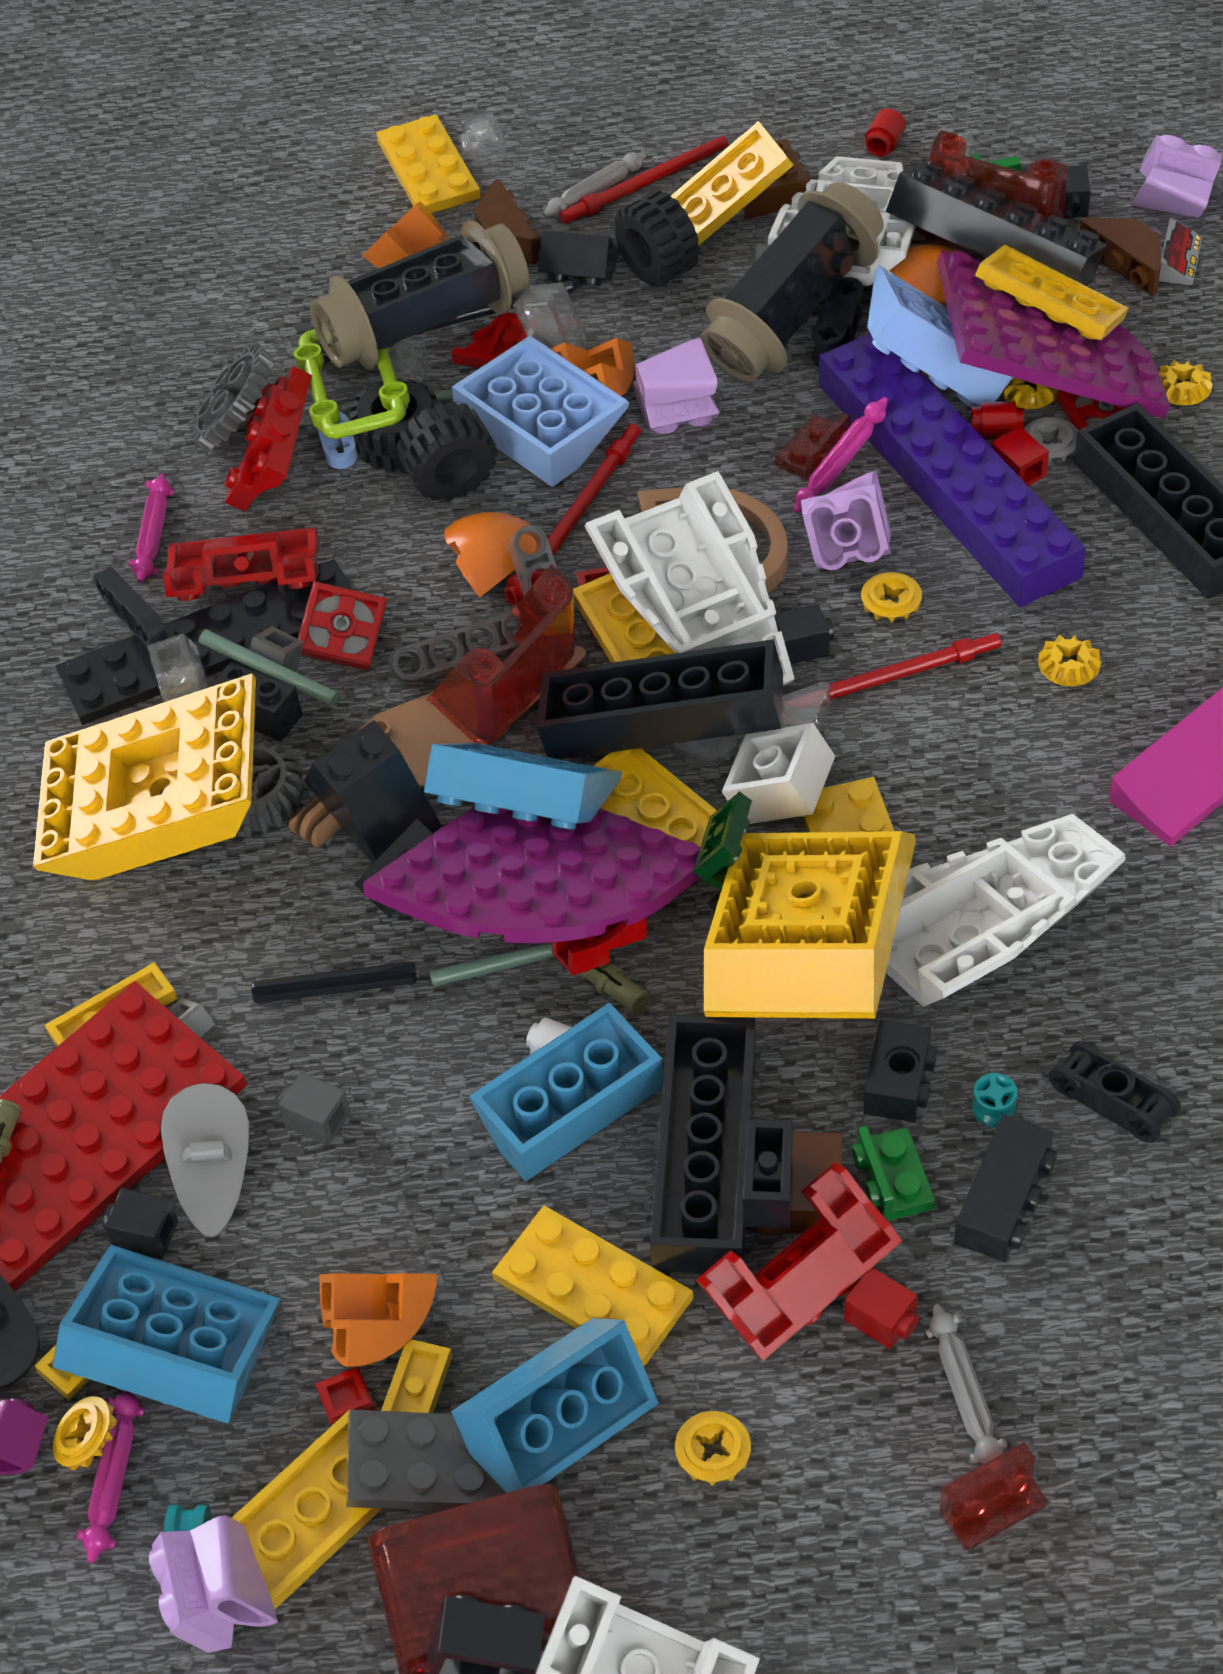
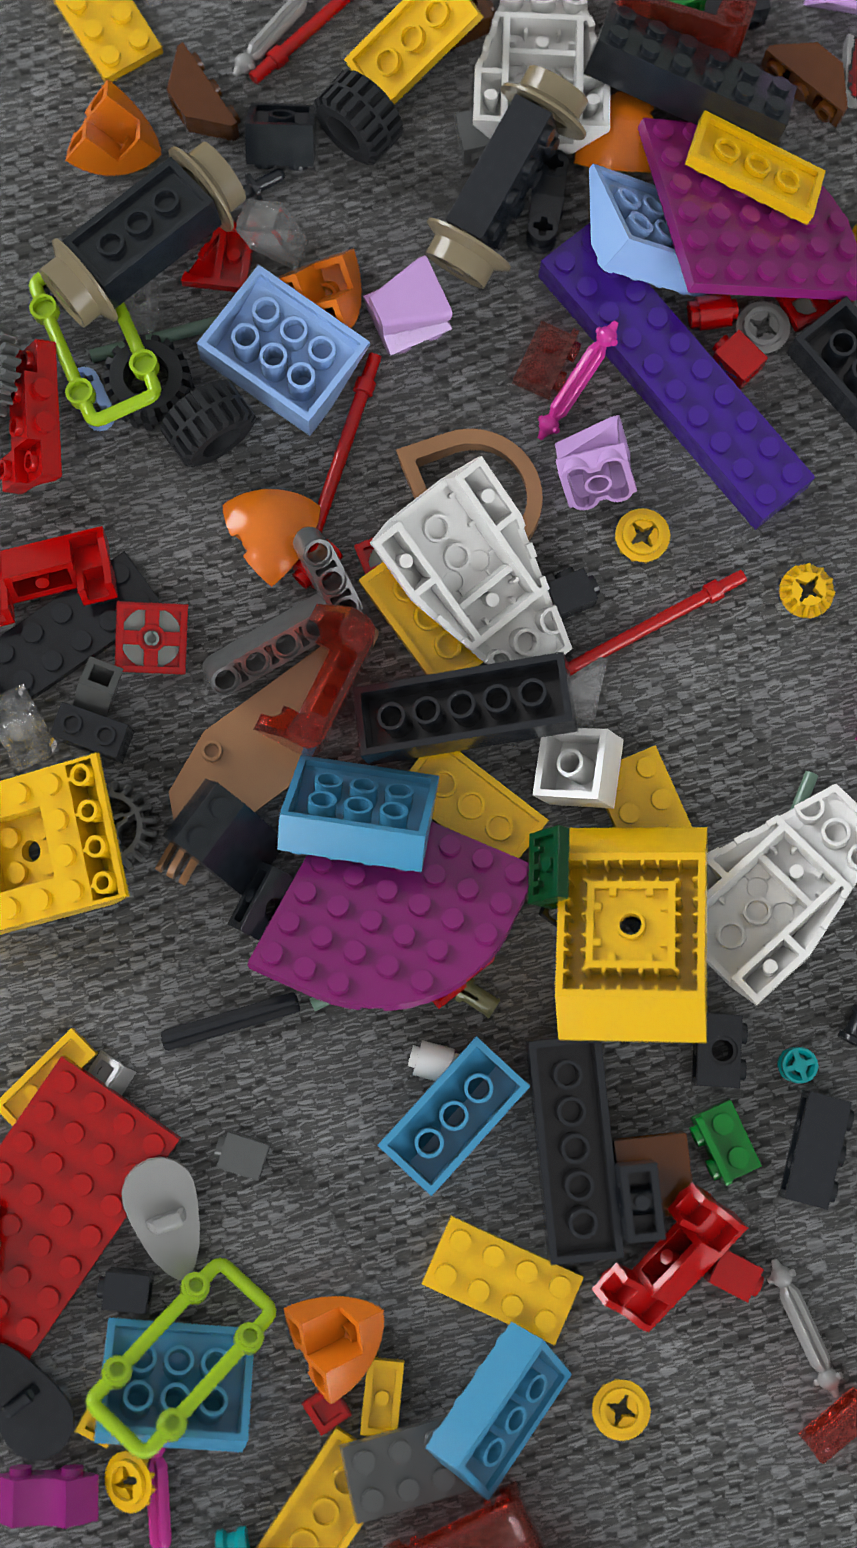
camera: 20 degrees left, 30 degrees up
(152, 1332) = (173, 1421): none -> lime bar
(268, 667) = (97, 706): sand green bar -> none

